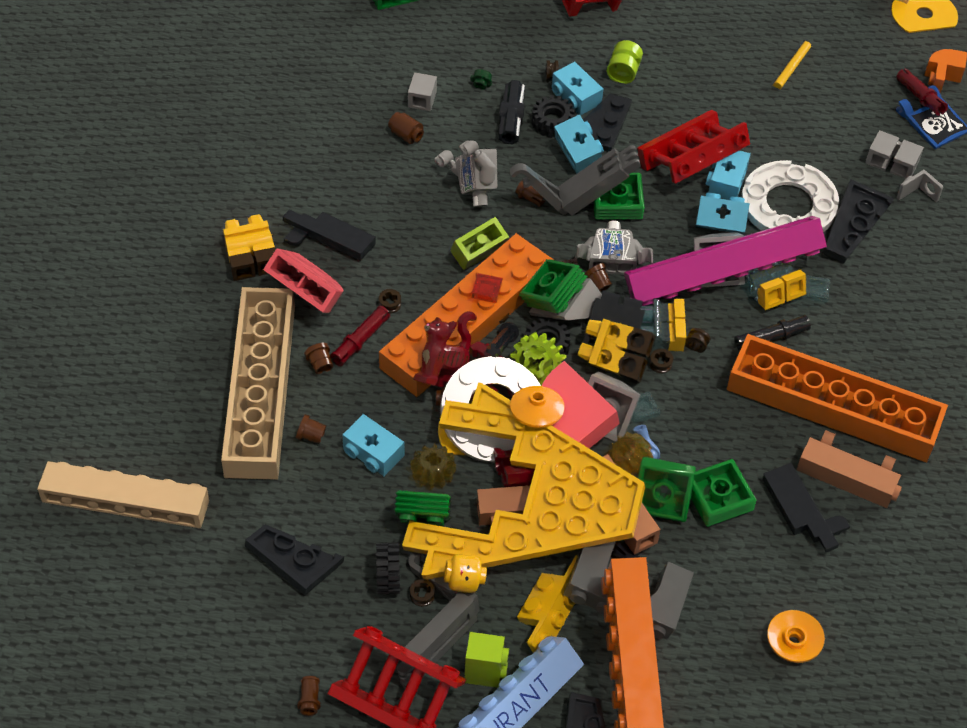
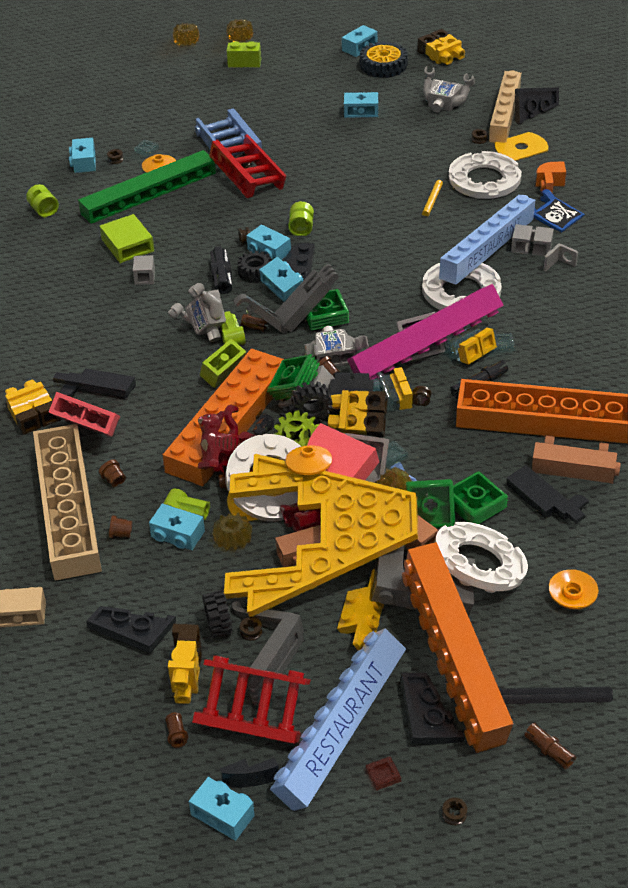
camera: 10 degrees left, 10 degrees down
(338, 620) = (185, 662): none -> yellow hips
(353, 342) = (139, 455): dark red pin -> none
(385, 415) = (180, 500): none -> lime piece
(394, 296) = (156, 424): dark brown bush -> none
(406, 127) = (138, 297): reddish brown brick -> none
(413, 42) = (127, 238): none -> lime brick
(424, 506) = (232, 559): green brick -> none
(464, 573) = (285, 598): yellow head -> none
(481, 79) = (189, 252): dark green plate -> none
(486, 660) = (322, 663): lime brick -> none
(487, 288) = (239, 389): clear red tile -> none
(501, 200) = (231, 329): none -> lime piece
(565, 324) = (311, 392): none -> black tyre
(654, 358) = (399, 422): dark brown bush -> none
(688, 135) = (375, 262): red fence -> none
(692, 535) = (463, 533): none -> white plate
(728, 175) = (407, 277): medium azure brick -> none
(733, 222) = (404, 310): medium azure brick -> none
(837, 144) = (486, 239): none -> light blue brick
(855, 217) = (516, 289): black wing -> none
(867, 70) = (505, 165): none -> white plate
(927, 96) = (543, 196): dark red pin -> none

